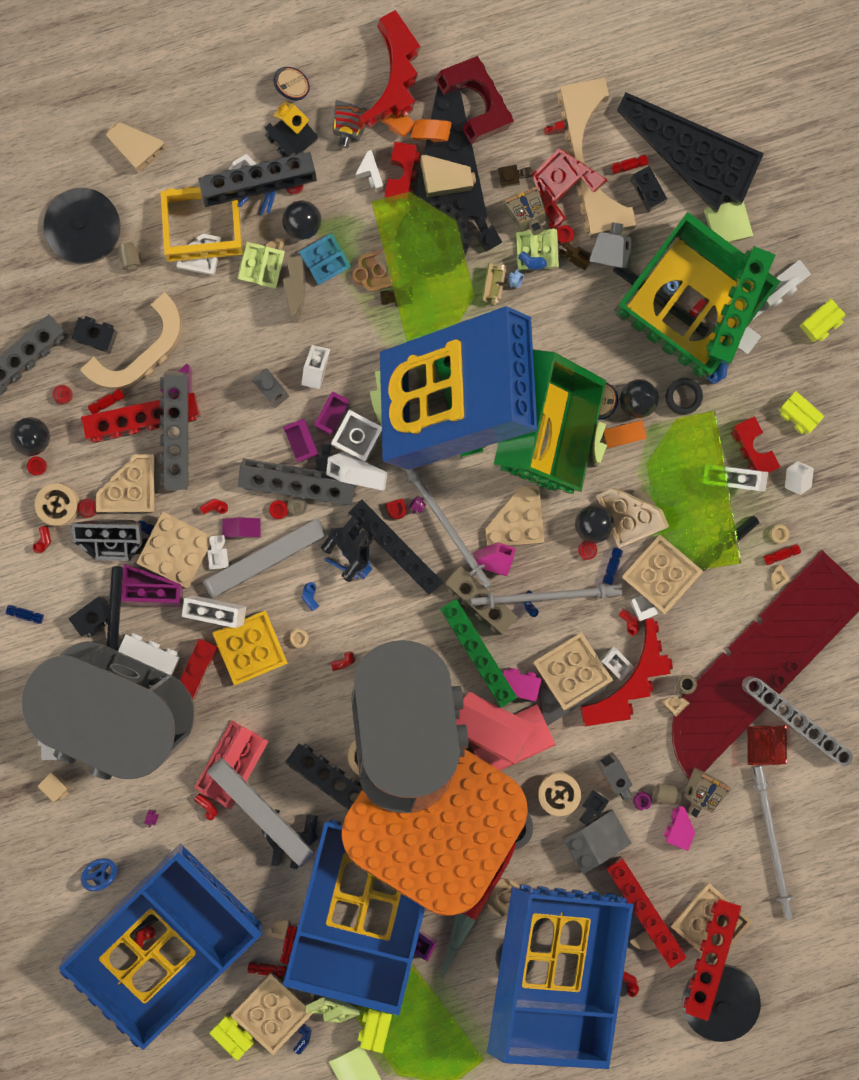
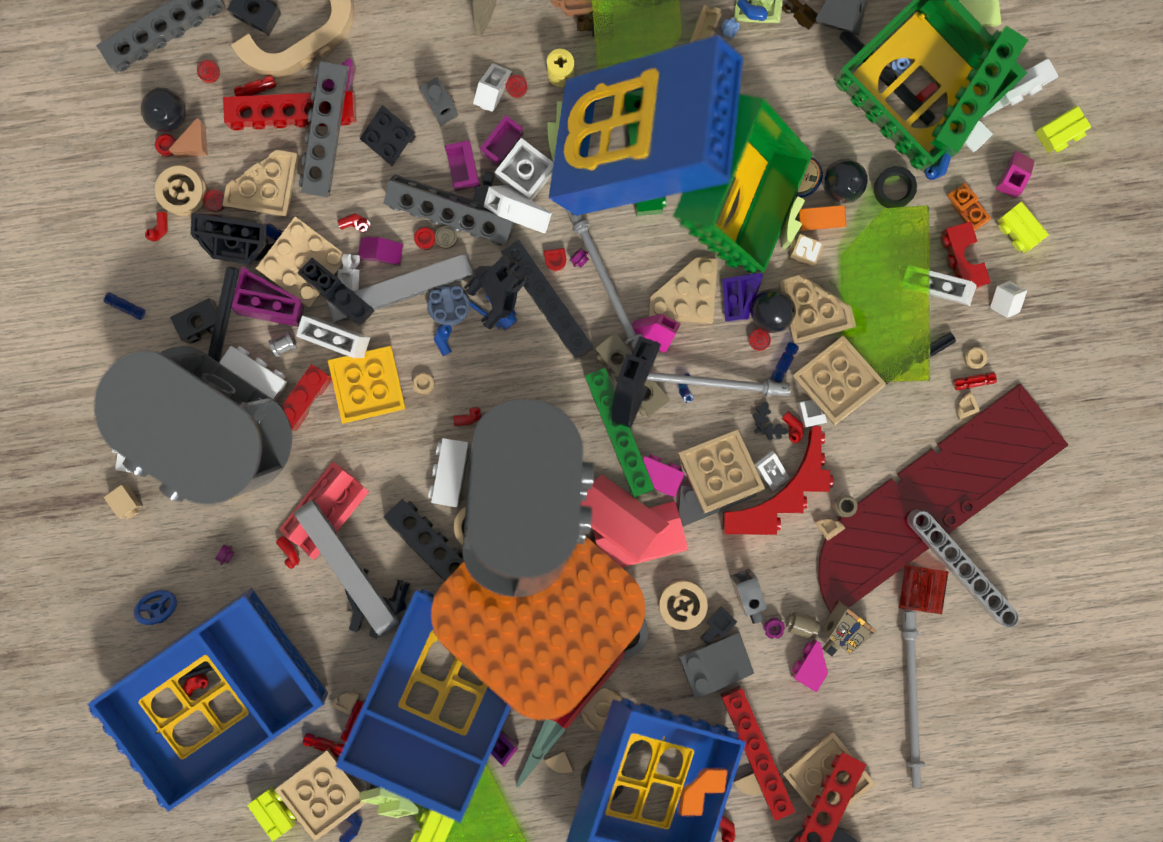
camera: 10 degrees right, 0 degrees up
(59, 460) = (191, 142): none -> nougat slope
(170, 624) = (282, 344): none -> light grey bush
(210, 572) = (336, 292): none -> black slope
(230, 425) = (387, 135): none -> black hinge
(309, 566) = (448, 305): none -> sand blue dish
(335, 713) = (449, 472): none -> white brick
(336, 362) = (516, 86): none -> red tile
(376, 334) = (560, 67): none -> light yellow piece
(474, 950) = (559, 763): none -> tan tile
(481, 607) = (631, 381): none -> black slope
(563, 515) = (739, 295): none -> dark purple wing
(595, 957) = (692, 796): none -> orange tile
(609, 628) = (769, 432): none -> black animal
(614, 464) = (805, 250): none -> brick
(751, 402) = (967, 206): none -> orange slope
(787, 367) = (1016, 175): none -> dark pink slope

